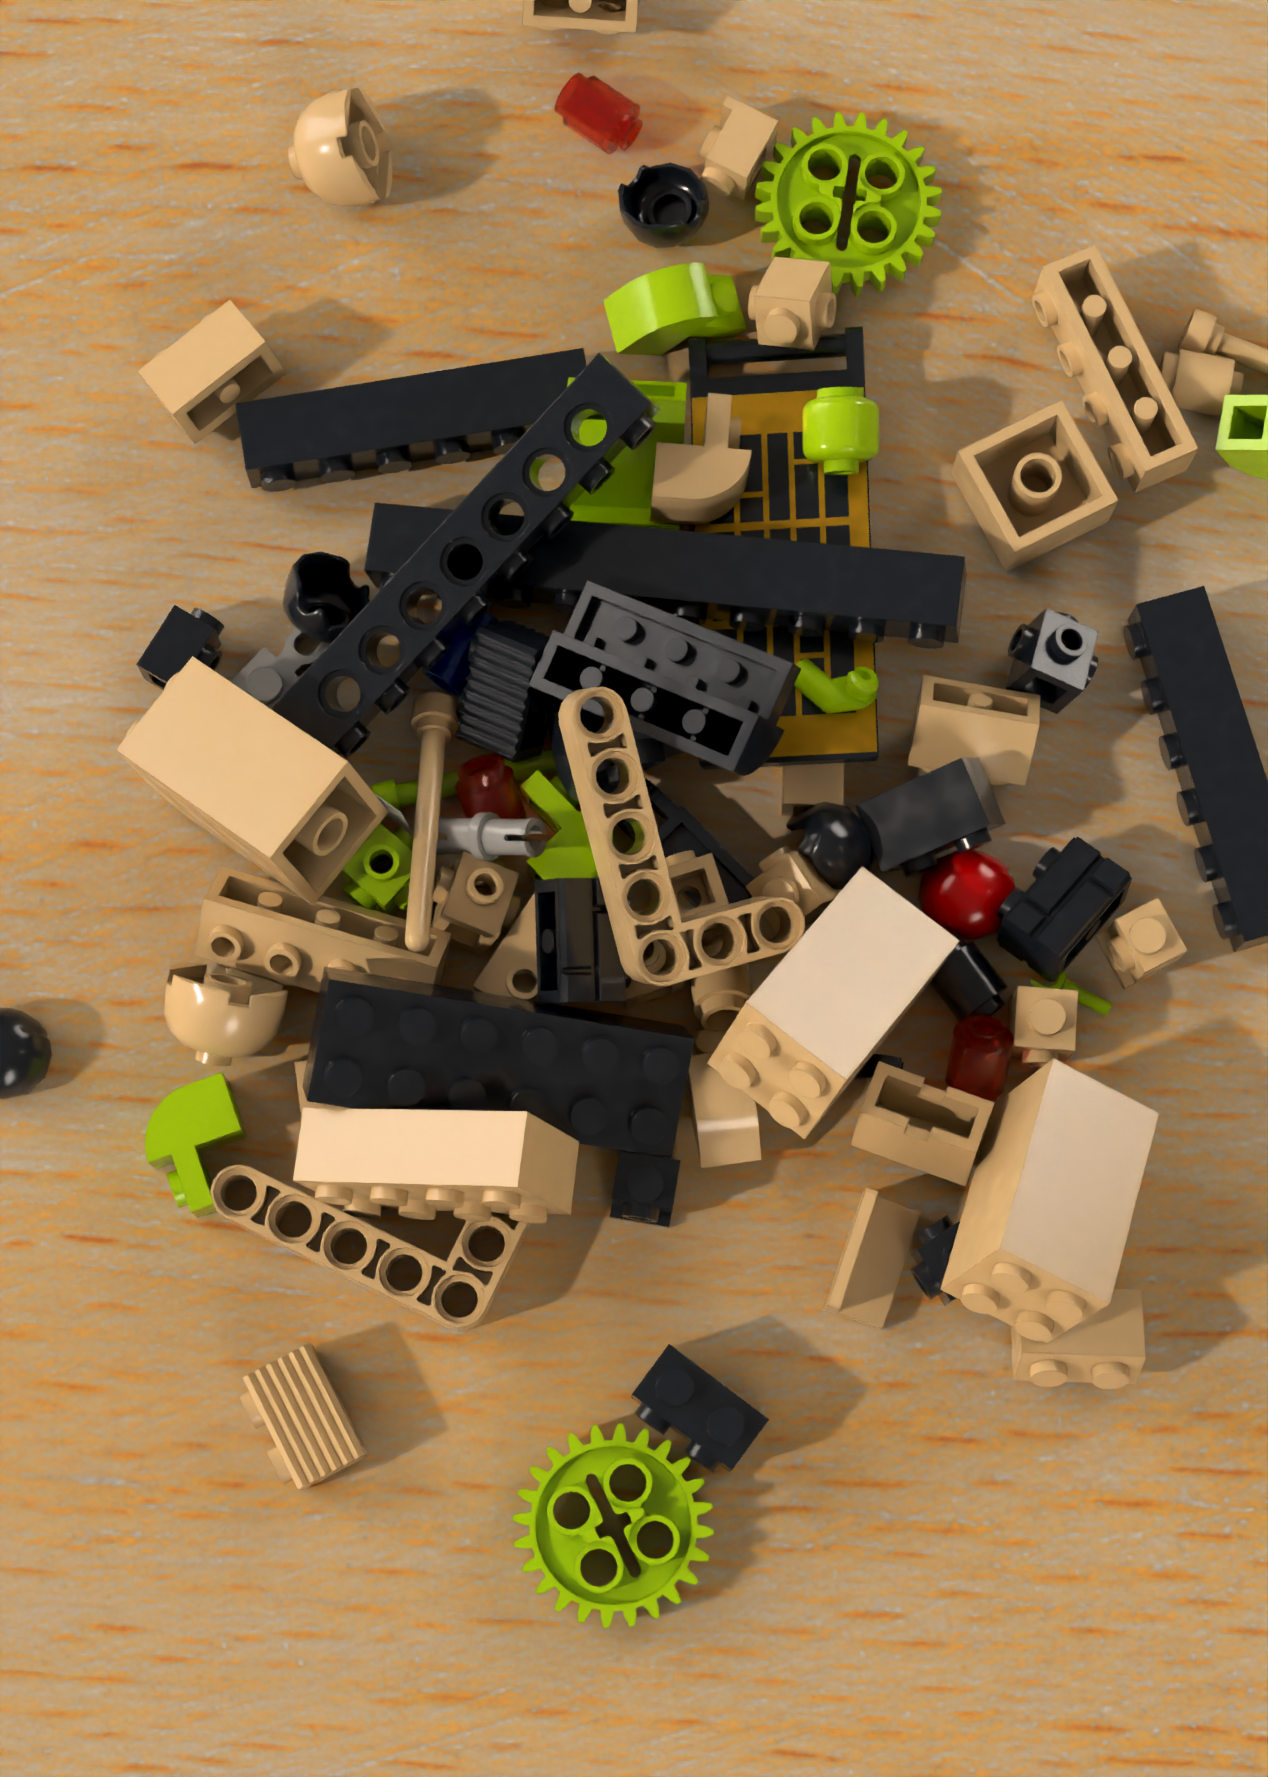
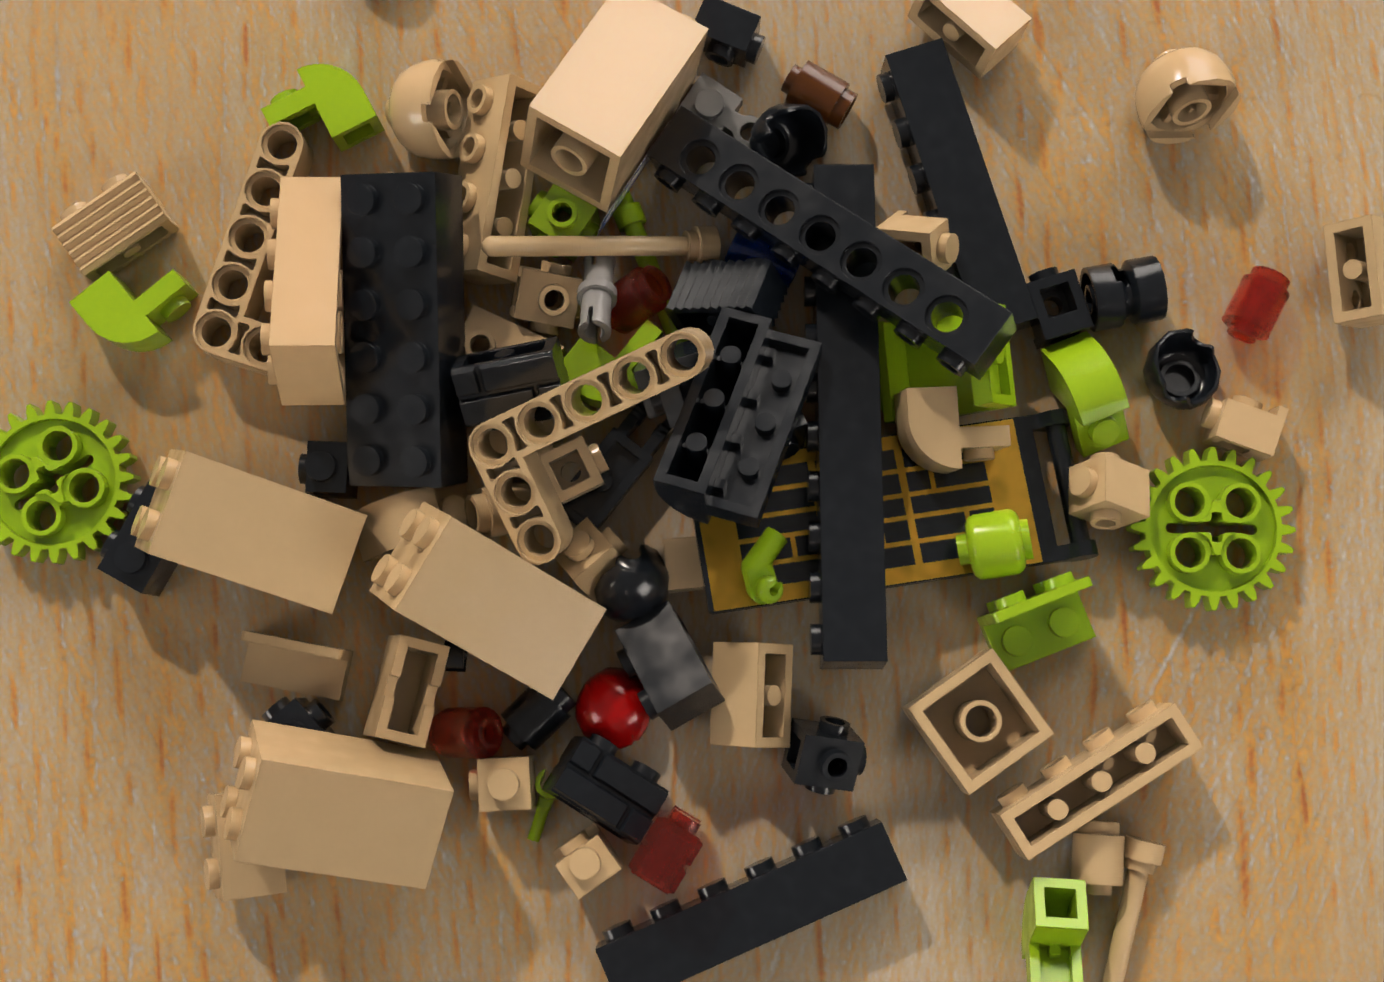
camera: 85 degrees right, 5 degrees up
(271, 554) = (820, 91): none -> reddish brown brick
(425, 1417) = (130, 320): none -> lime brick
(471, 458) = (925, 236): none -> tan brick
(565, 250) = (1130, 292): none -> black wheel
(576, 313) = (1067, 294): none -> black brick
(714, 1272) = (248, 530): none -> tan brick
(927, 404) = (1037, 625): none -> lime bracket
(1142, 841) = (667, 849): none -> clear red brick

